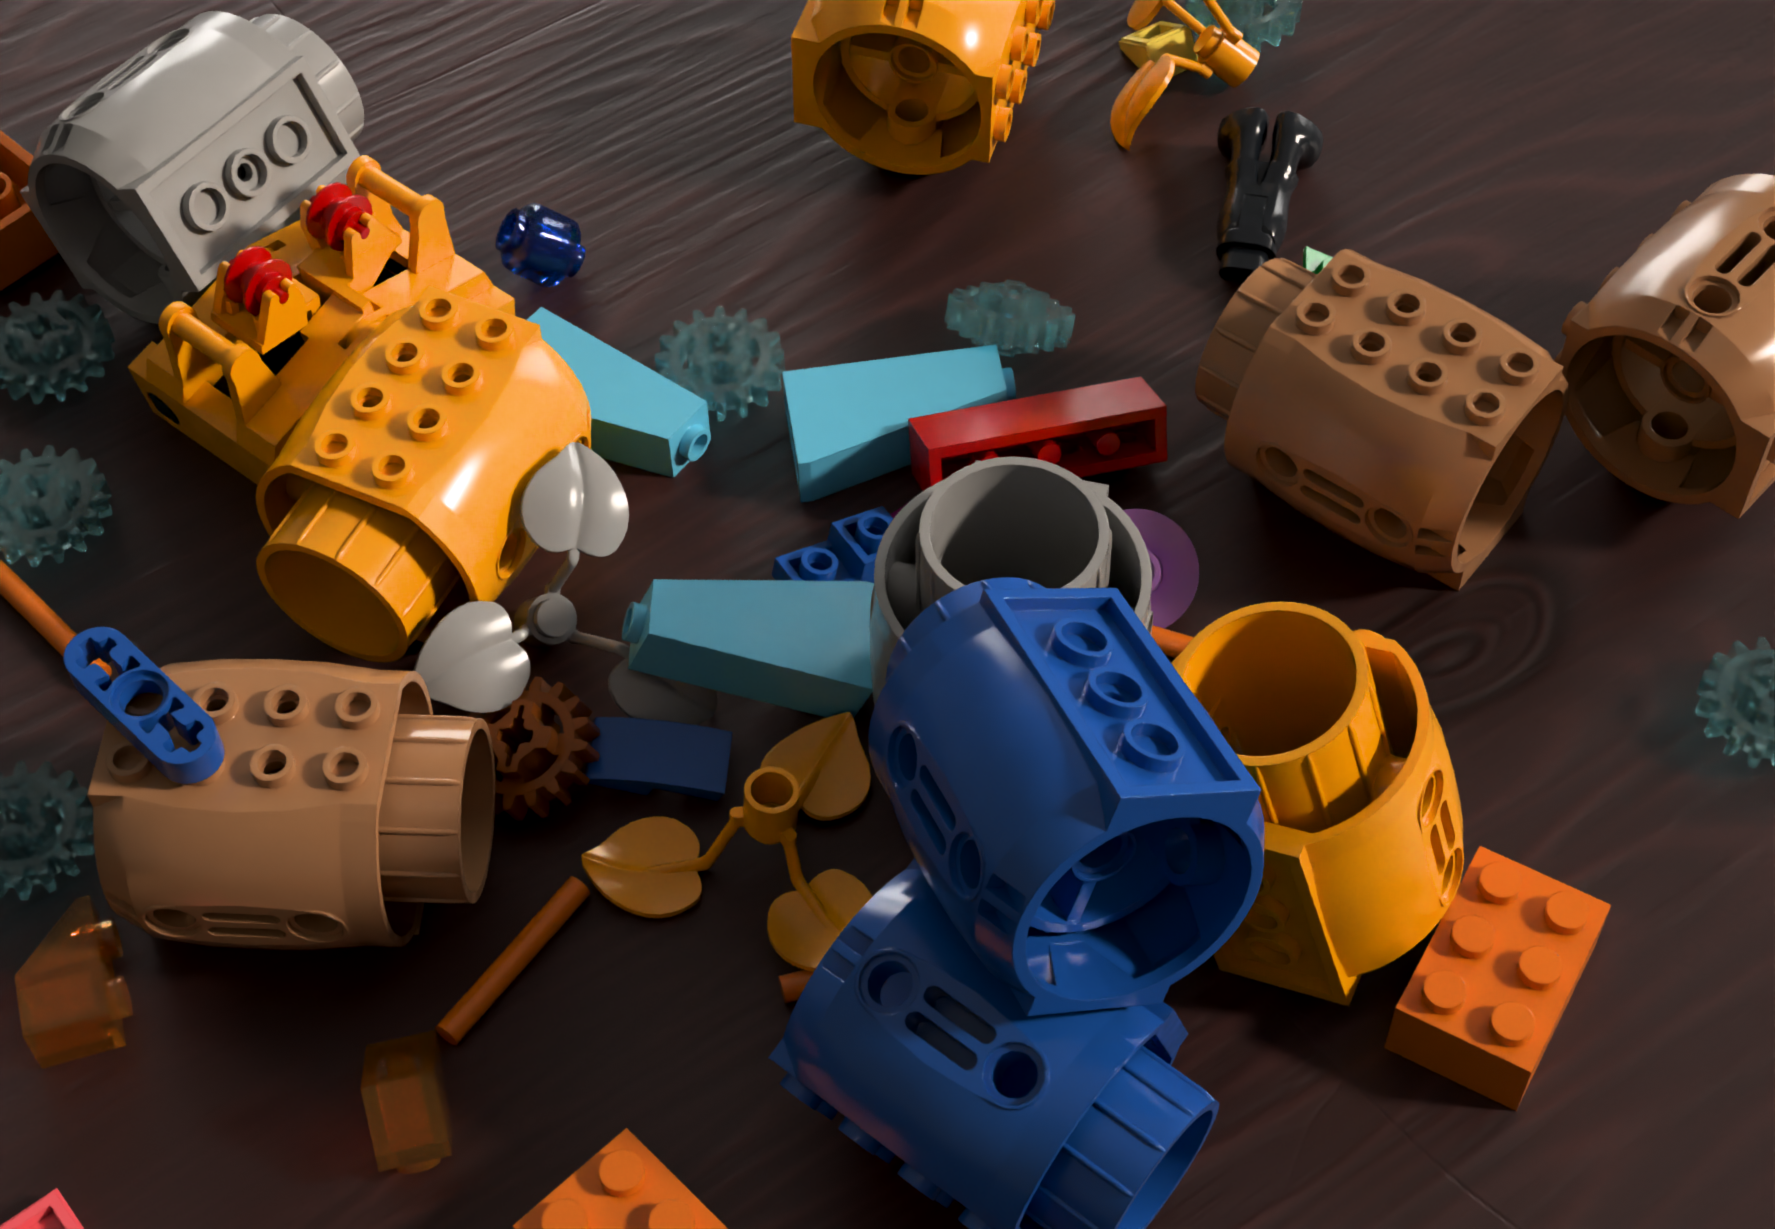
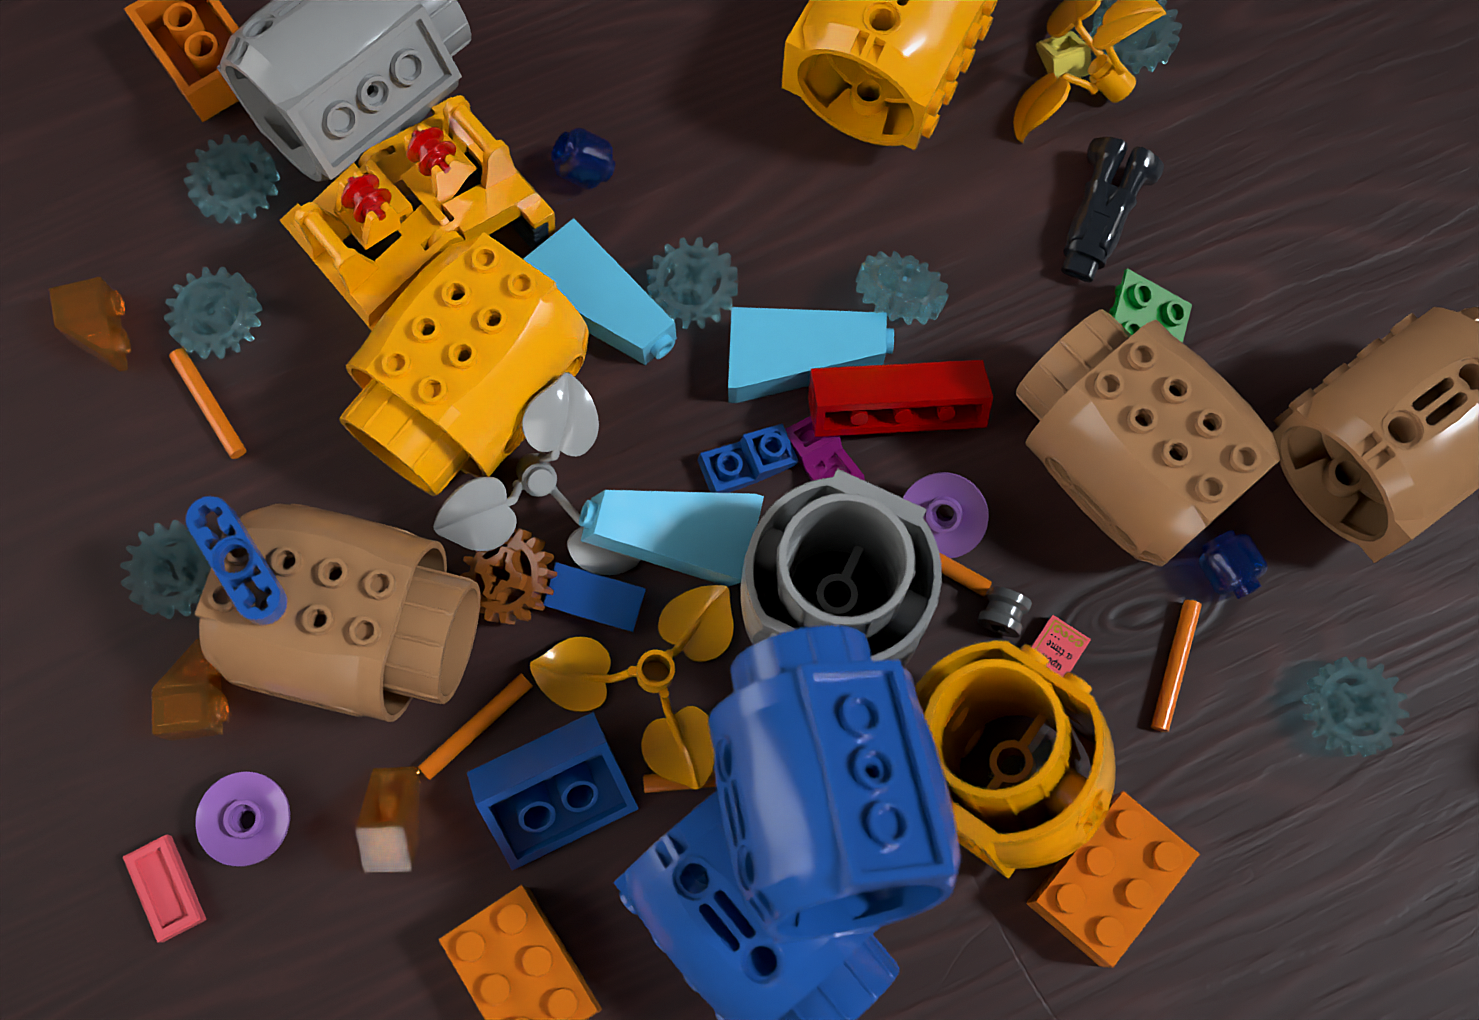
camera: 10 degrees right, 20 degrees up
(160, 1117) = (221, 815): none -> medium lavender dish
(648, 1016) = (551, 791): none -> blue slope
(1510, 706) = (1176, 666): none -> orange bar
(1549, 562) = (1233, 564): none -> clear blue head

